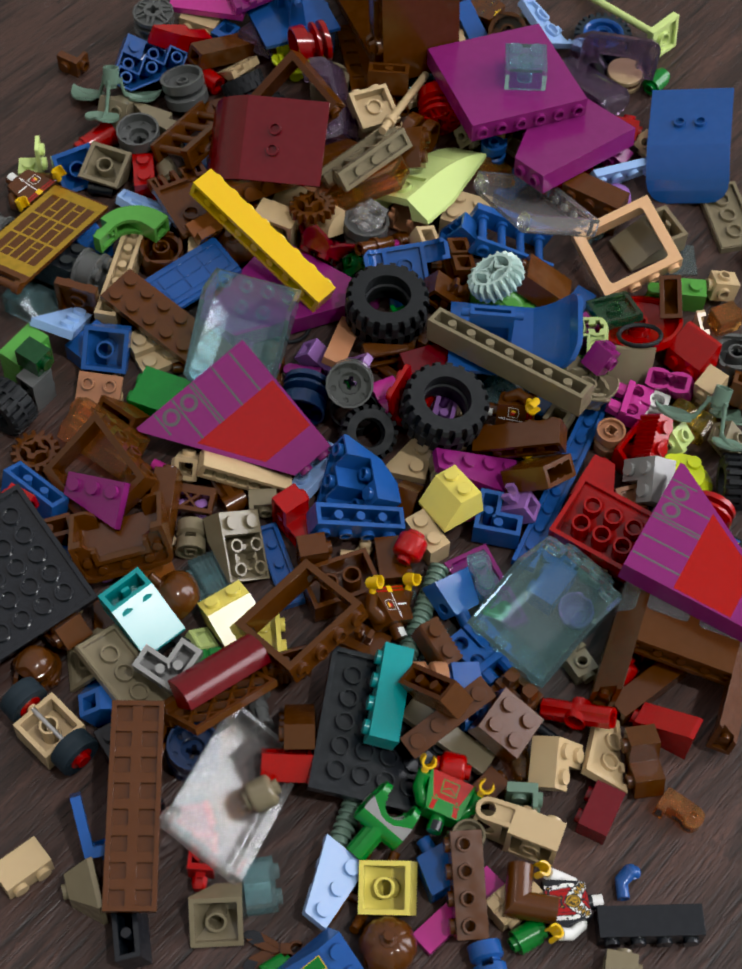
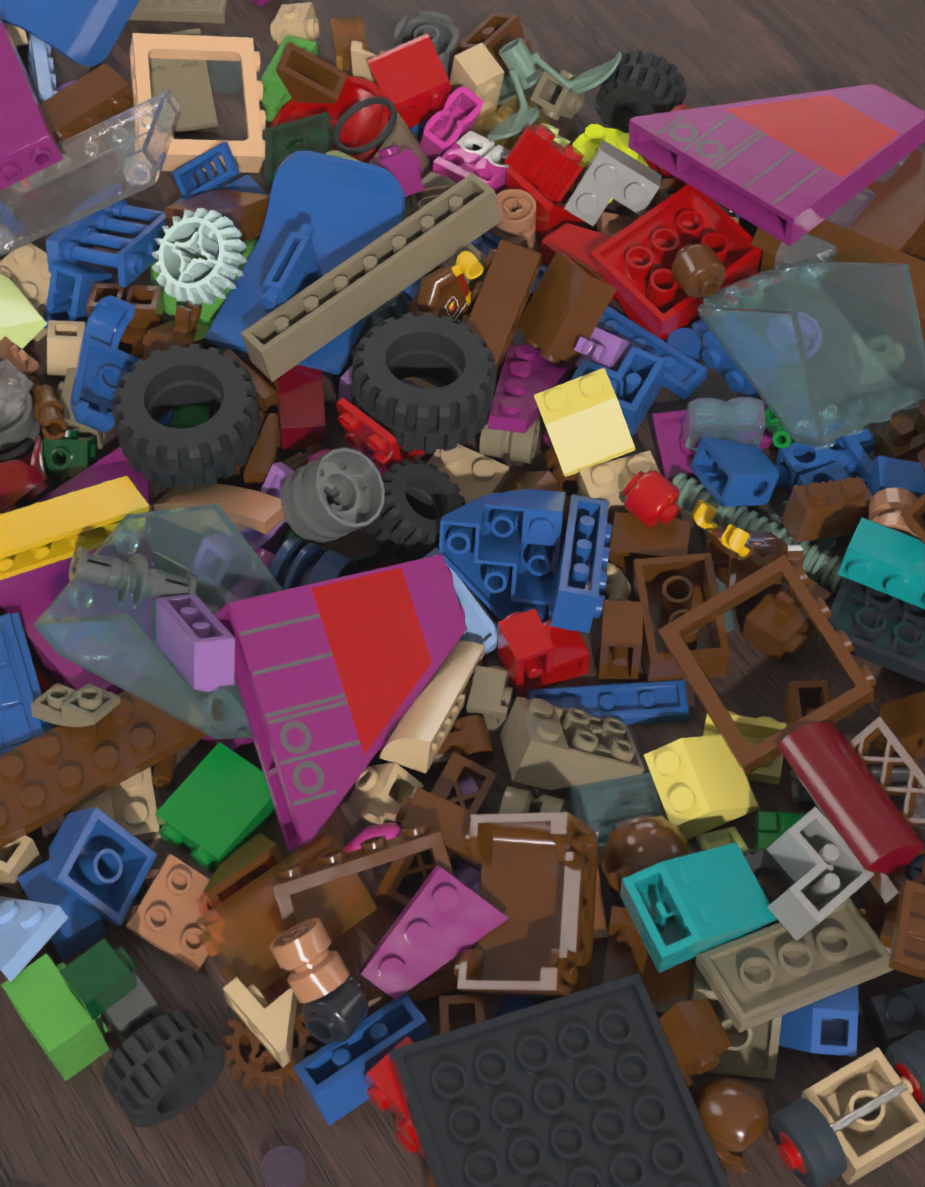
camera: 70 degrees left, 0 degrees up
(37, 441) = (270, 1025): none -> tan slope
(49, 465) = (336, 1013): none -> black head
(63, 442) = (312, 966): none -> nougat wheel
(188, 307) = (72, 707): none -> dark tan slope
(222, 339) = (195, 642): none -> medium lavender brick
(261, 303) = (129, 577): none -> dark grey piece
(576, 269) = (185, 174): none -> blue slope
(585, 533) = (698, 270): none -> reddish brown head

